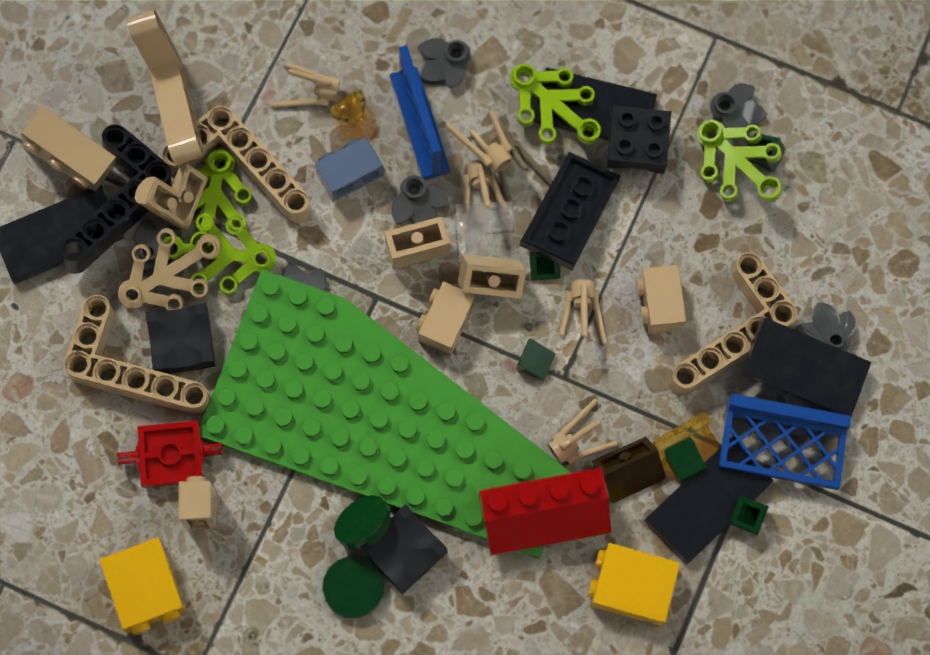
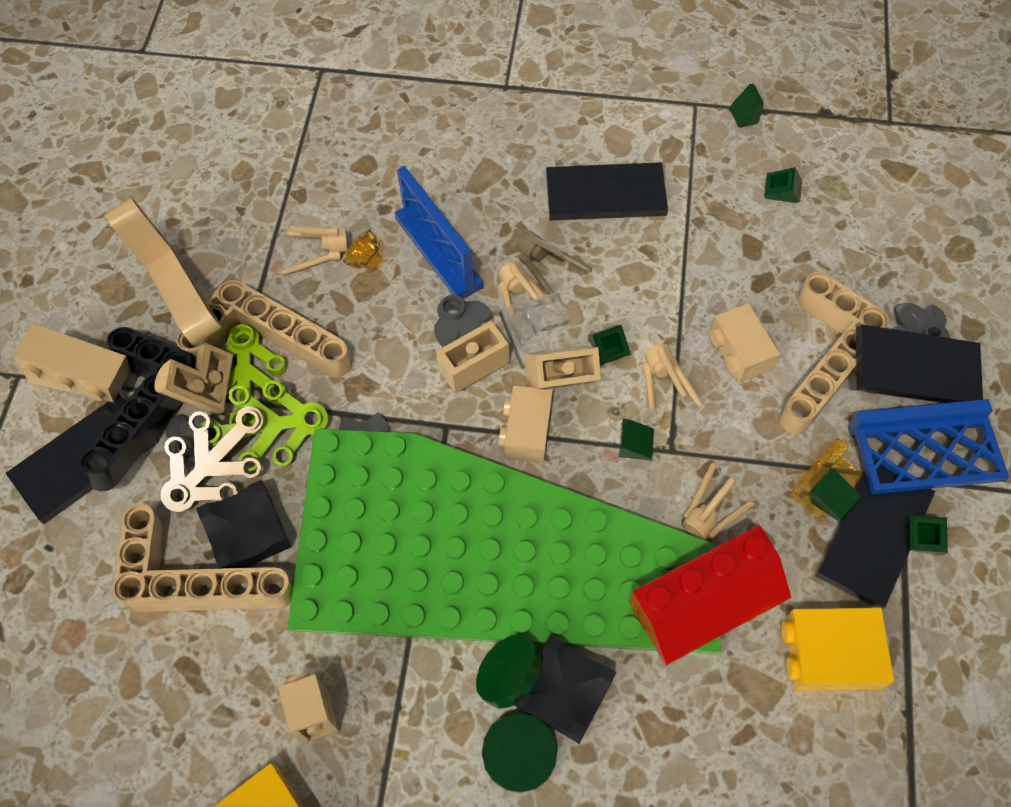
camera: 10 degrees left, 10 degrees down
(169, 453) = (260, 659): red plate -> none
(349, 168) = (379, 307): sand blue brick -> none
(441, 63) = (444, 190): dark grey plate -> none
(494, 155) = (525, 251): tan plant -> none
(552, 100) = (564, 192): lime plant -> none
(570, 211) = (618, 287): black tile -> none
(630, 469) = (785, 519): dark brown panel -> none
(639, 139) = (662, 201): black brick -> none
(737, 157) = (763, 194): lime plant -> none
(741, 108) = (742, 157): dark grey plate -> none
(761, 58) = (747, 107): none -> dark green slope

